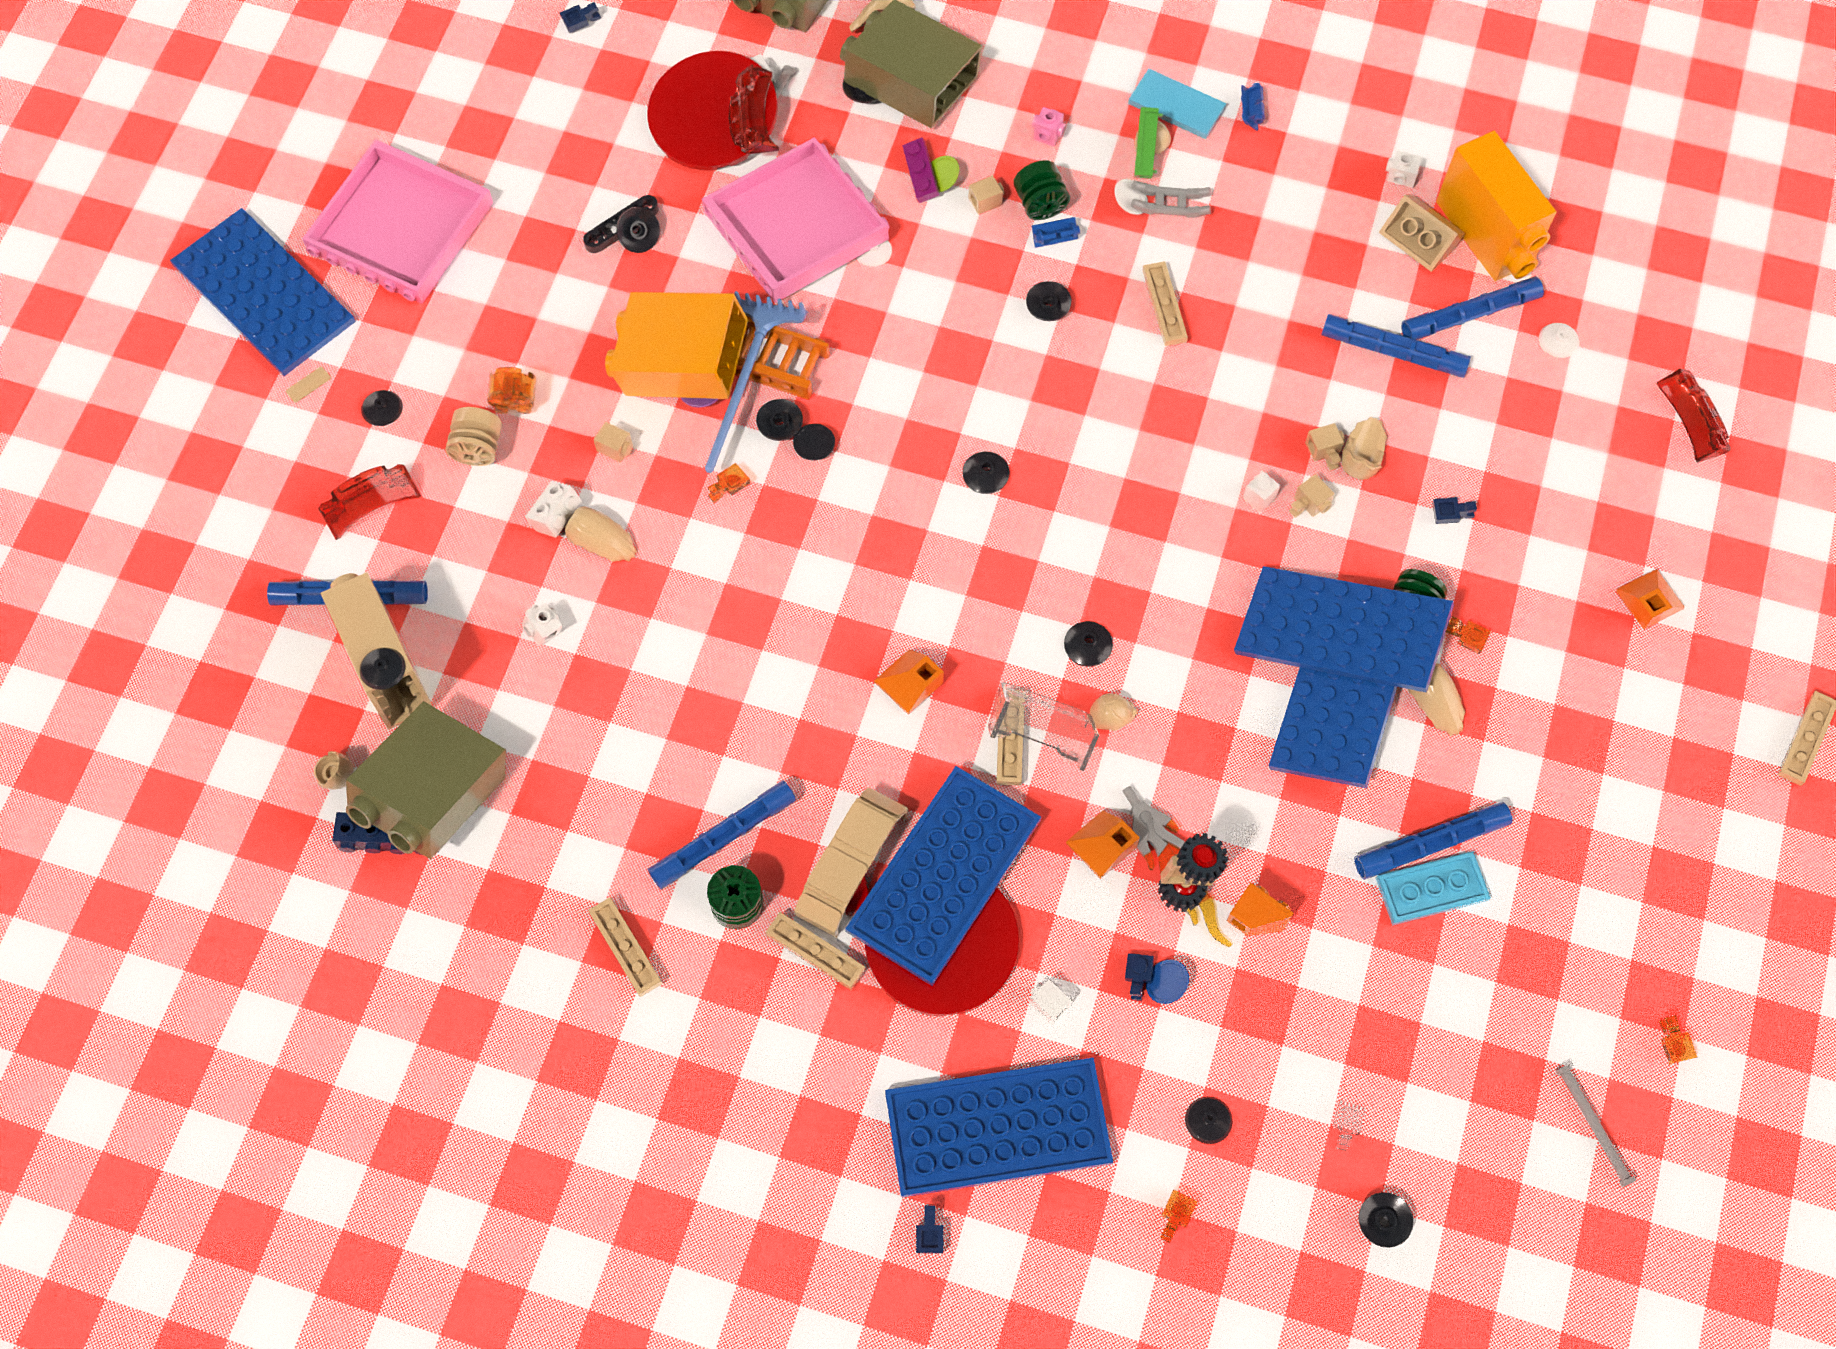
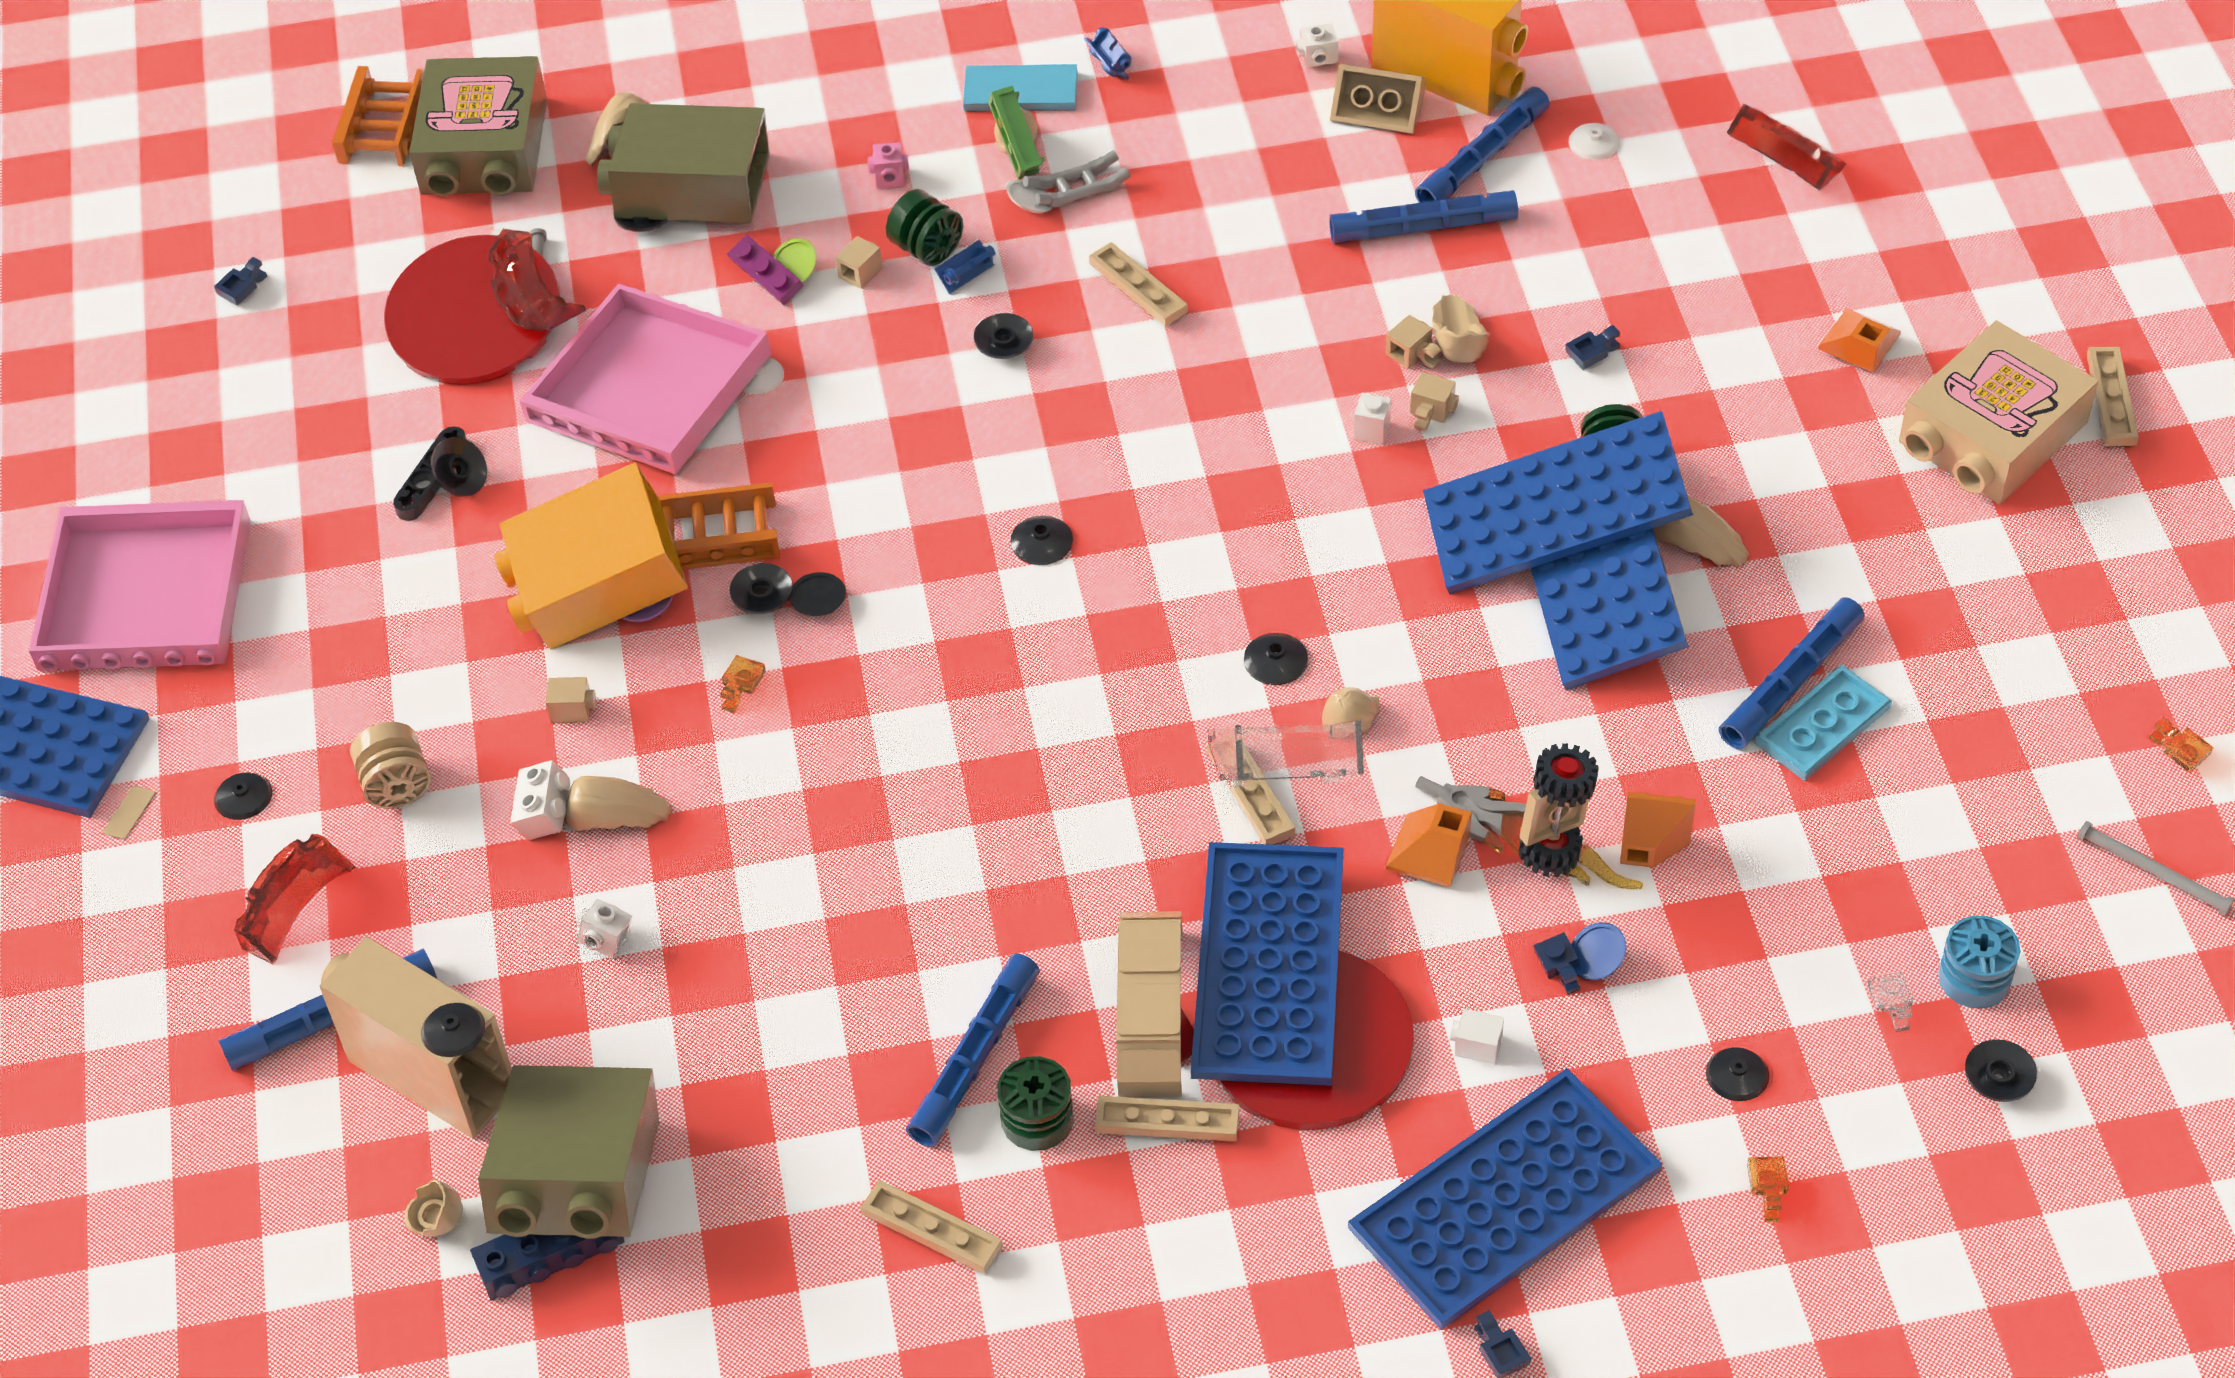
camera: 25 degrees left, 15 degrees down
(511, 390) = (407, 694): clear orange brick -> none
(765, 318) = (680, 488): medium blue piece -> none
(910, 680) = (1095, 782): orange slope -> none
(1412, 1145) = (1979, 961): none -> dark azure wheel
(1470, 636) = (1697, 459): clear orange plate -> none
(1709, 712) = (1997, 412): none -> tan brick

